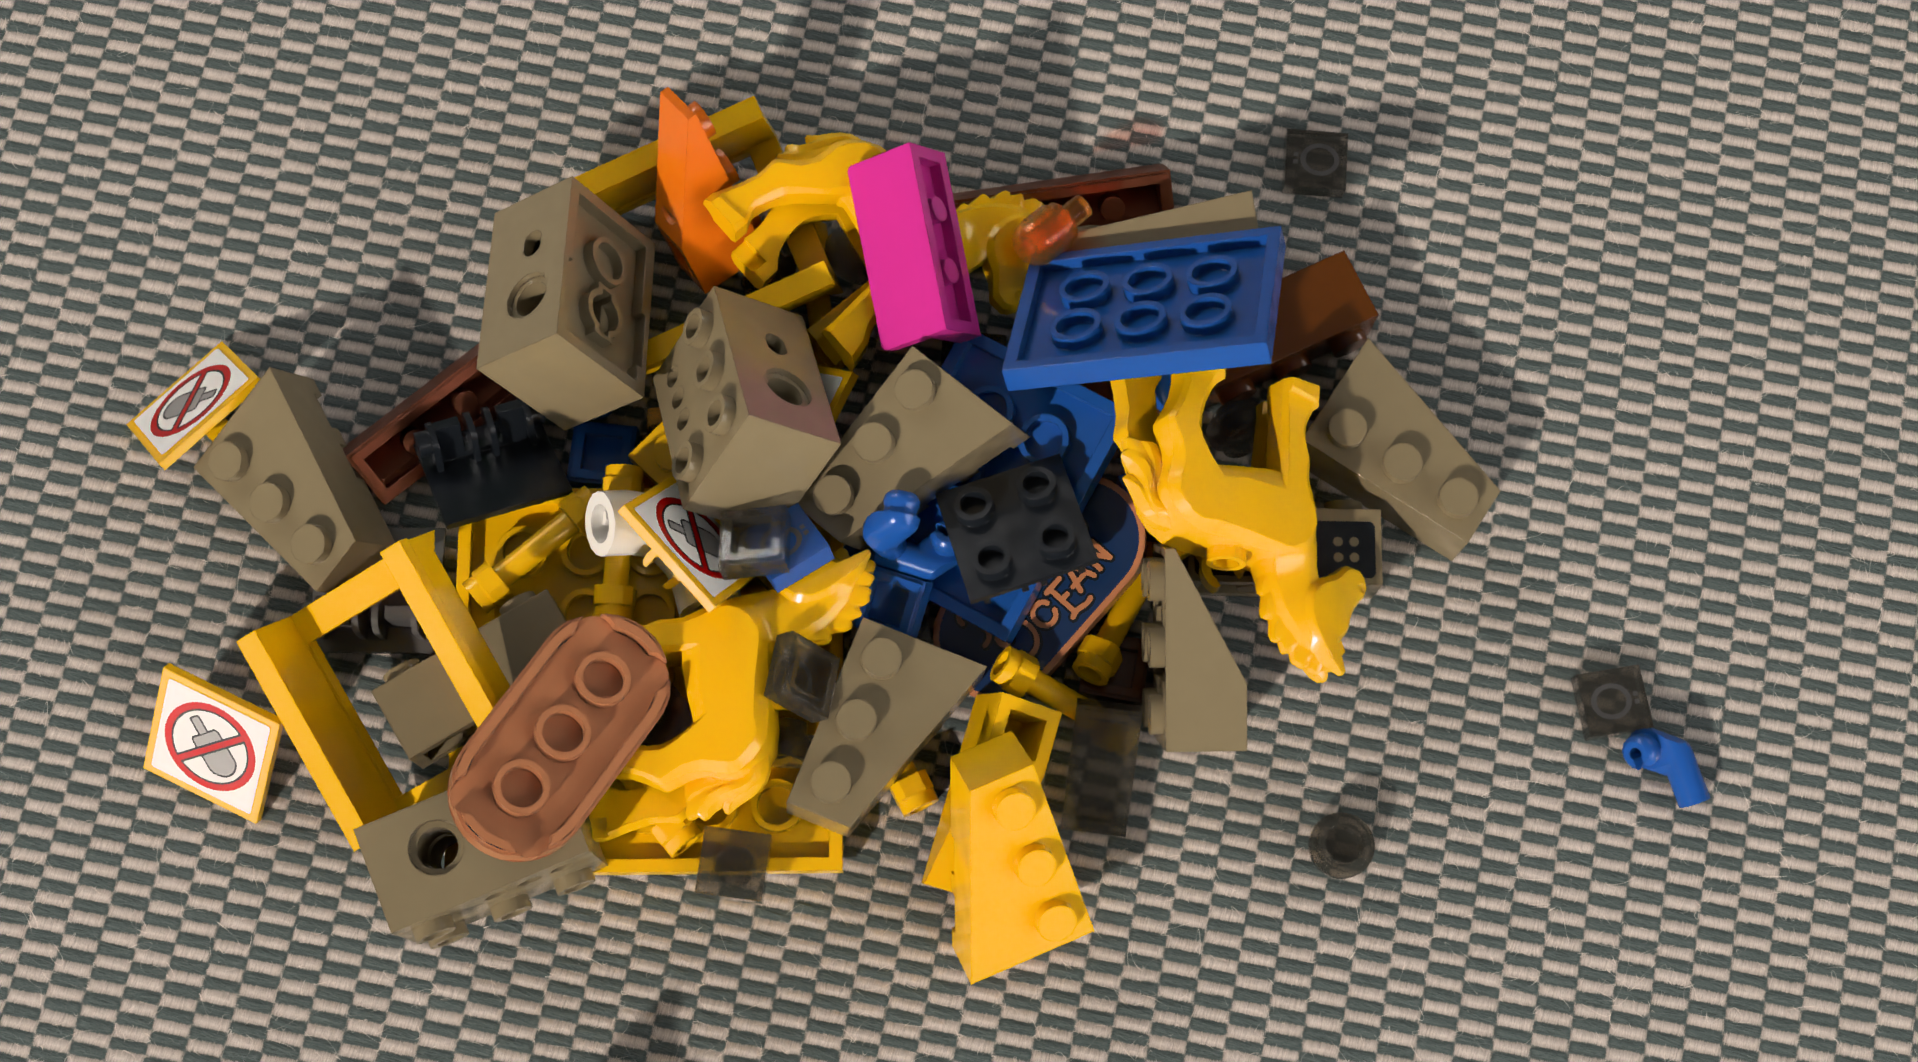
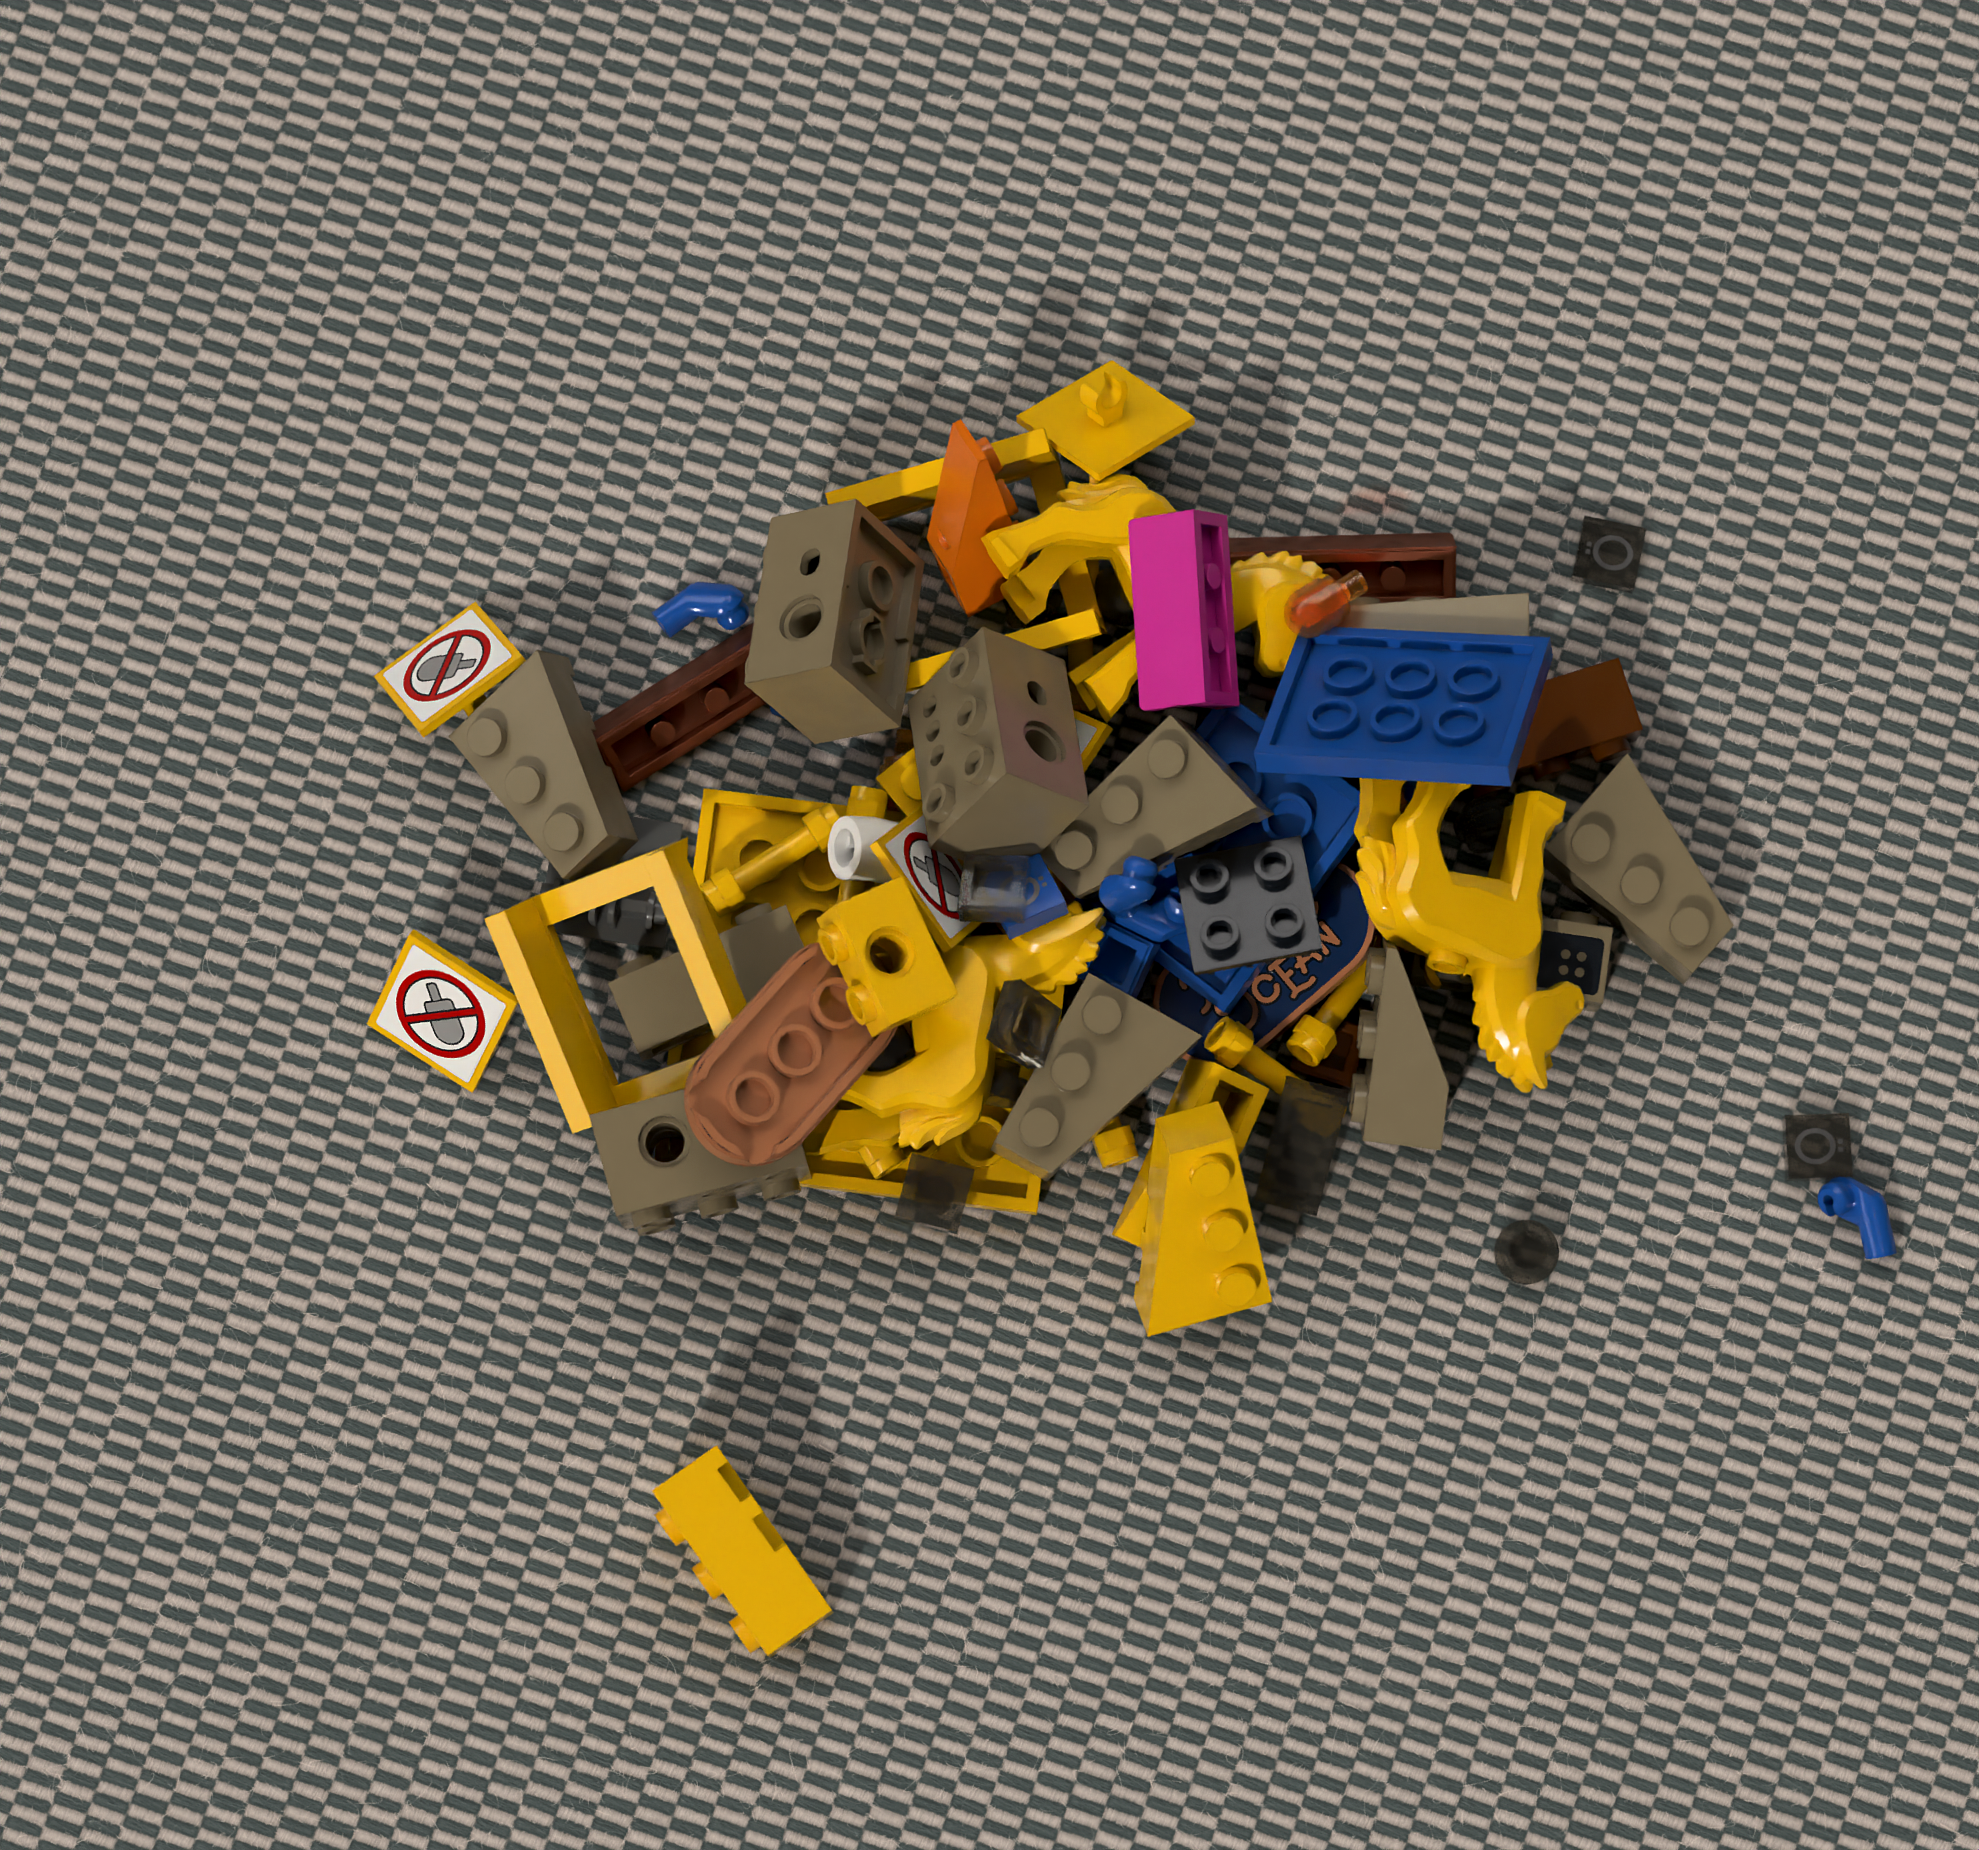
camera: 10 degrees right, 5 degrees up
(442, 311) = (703, 600): none -> blue arm
(490, 465) = (737, 769): black hinge -> none
(595, 447) = (844, 765): blue tile -> none
(646, 584) = (890, 920): none -> yellow brick
(818, 89) = (1106, 420): none -> yellow piece

